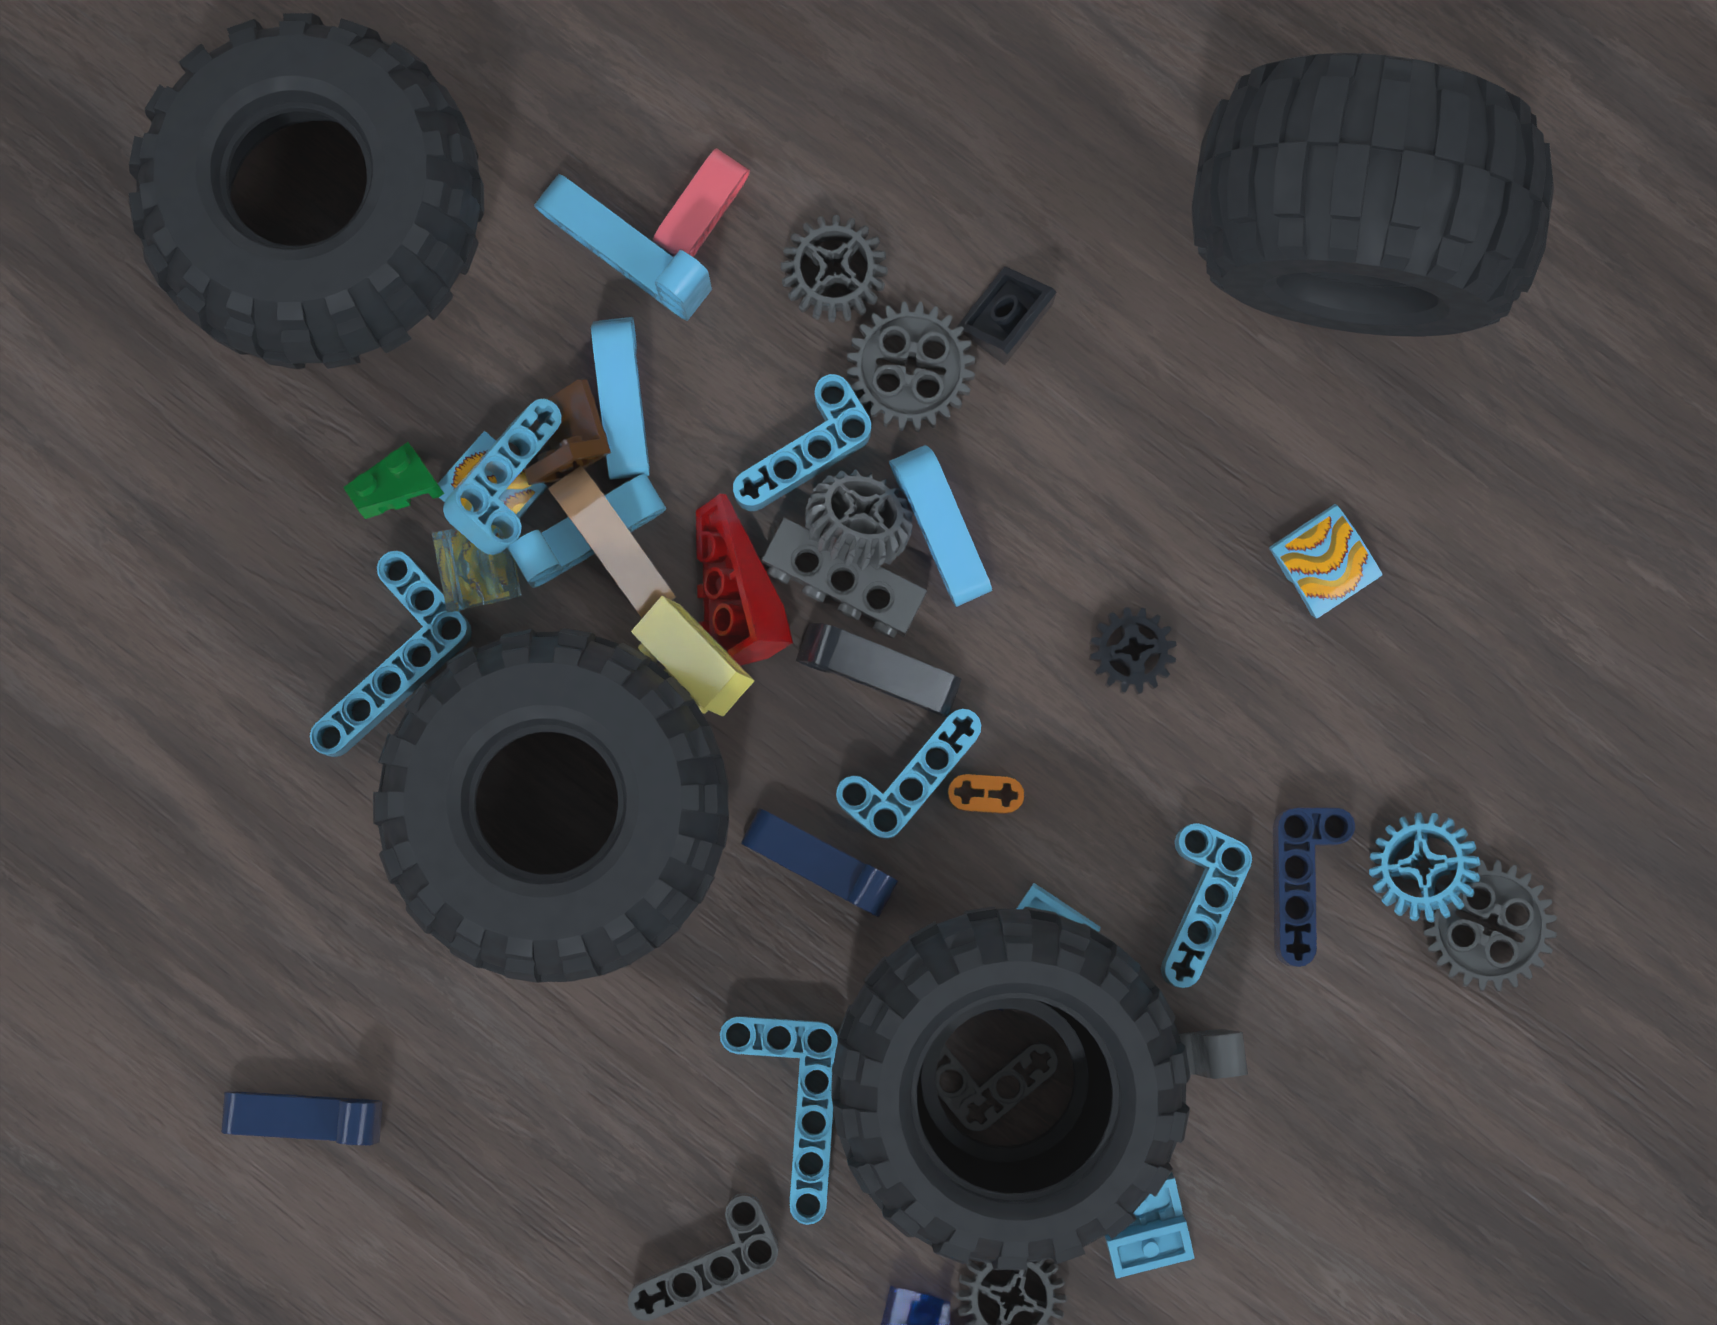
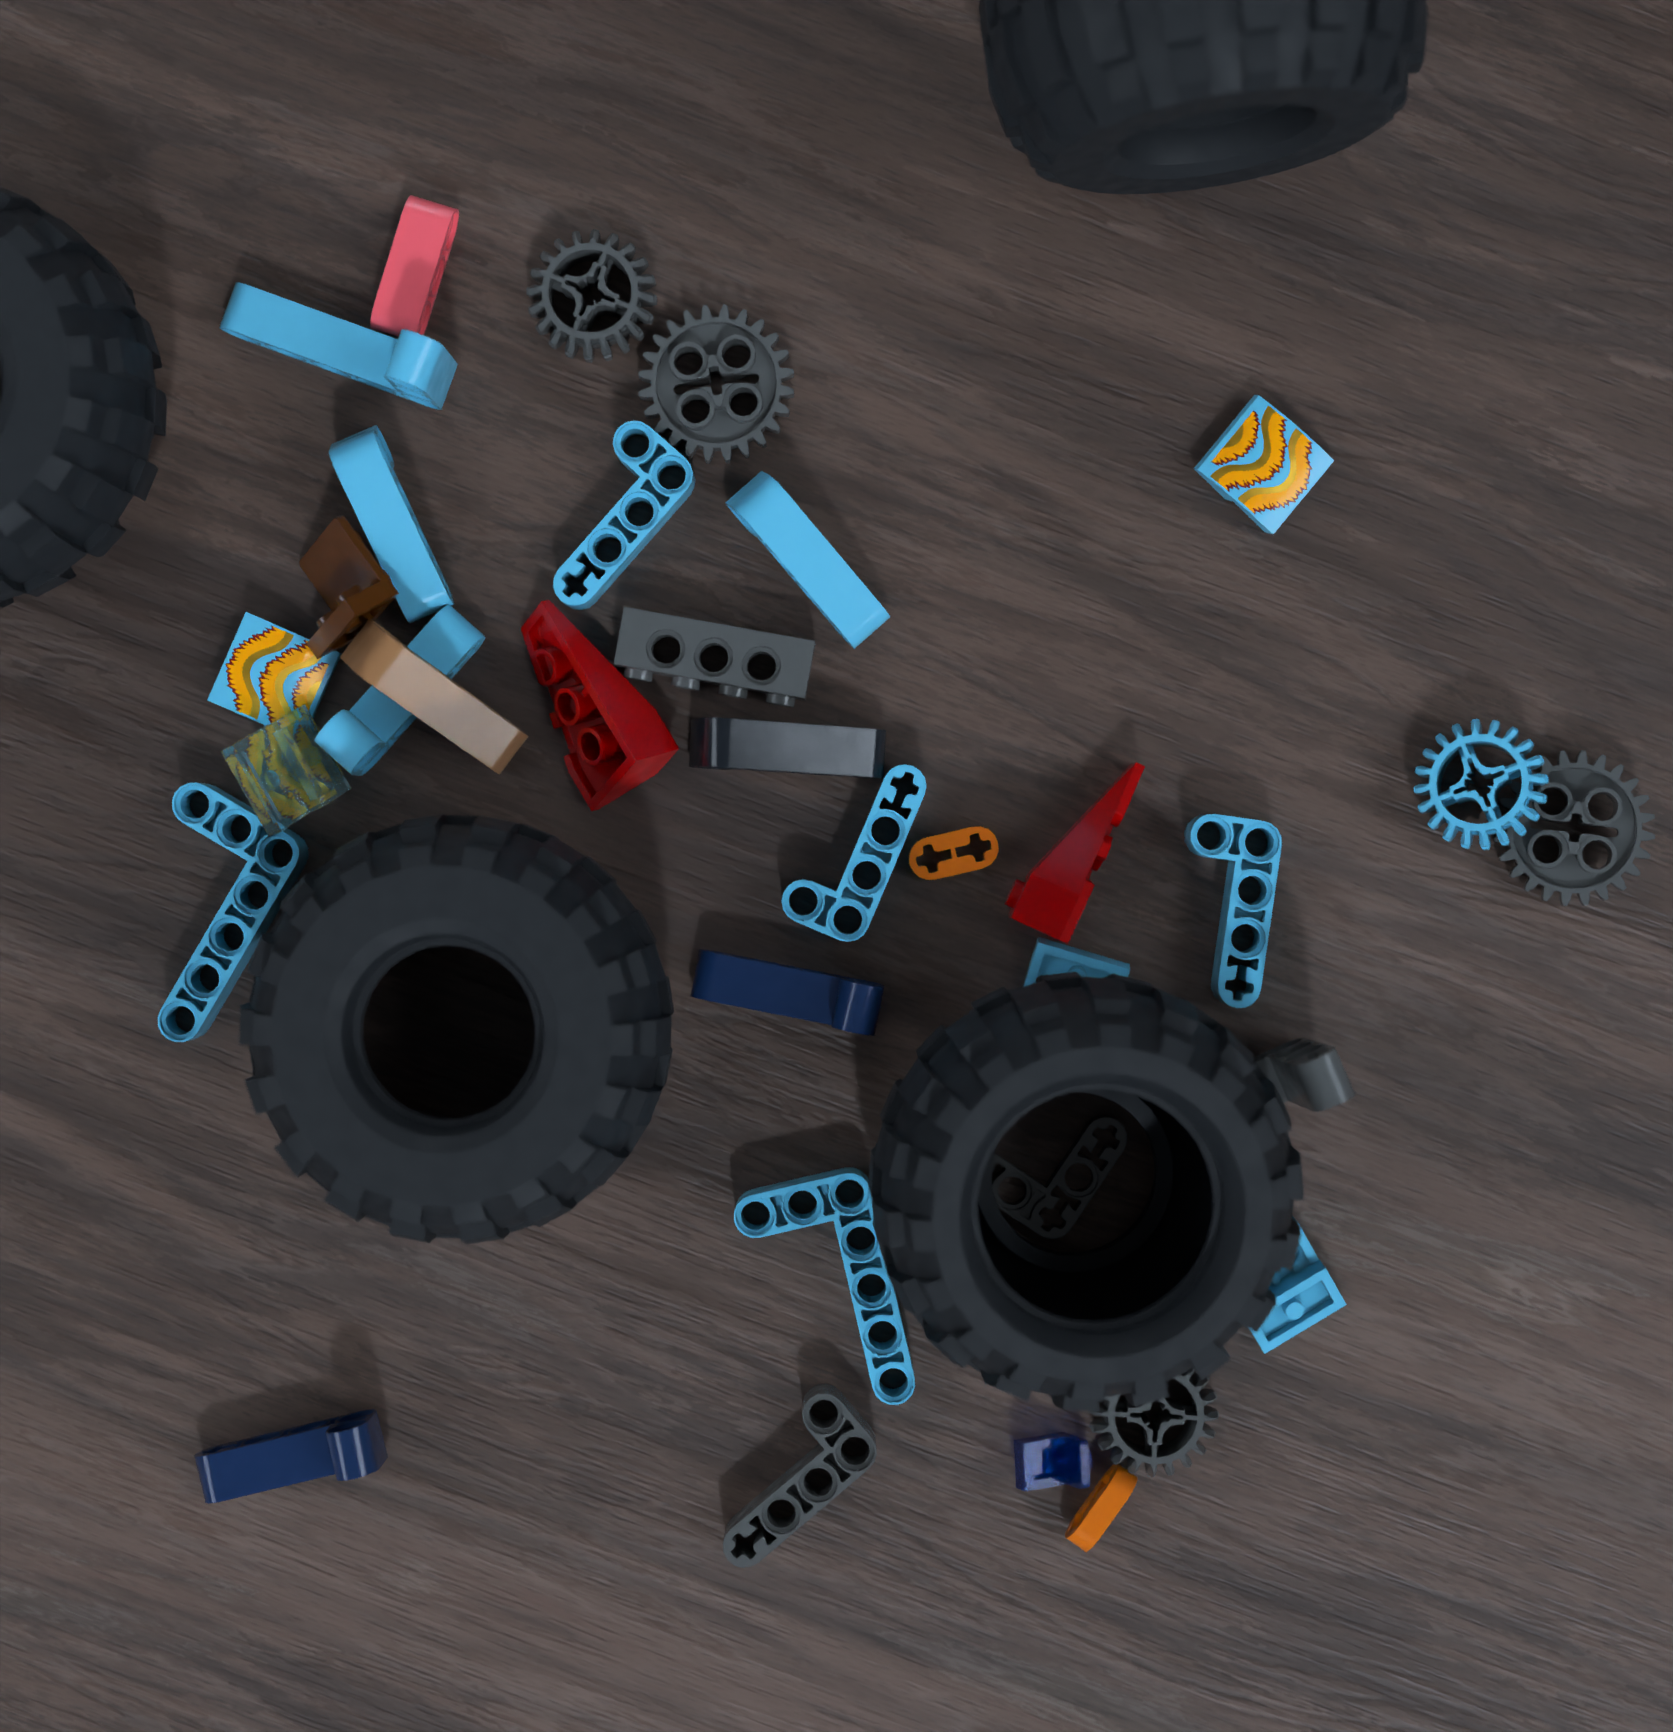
camera: 15 degrees left, 5 degrees up
(392, 483) = (160, 705): green wing -> none
(506, 467) = (283, 647): medium azure beam -> none
(691, 656) = (567, 801): light yellow brick -> none
(858, 520) = (711, 593): dark grey gear -> none
(1007, 313) = (809, 286): black slope -> none
(1065, 842) = (1060, 883): none -> red wedge
(1130, 632) = (1062, 616): black gear -> none
(1304, 886) = (1349, 846): dark blue beam -> none

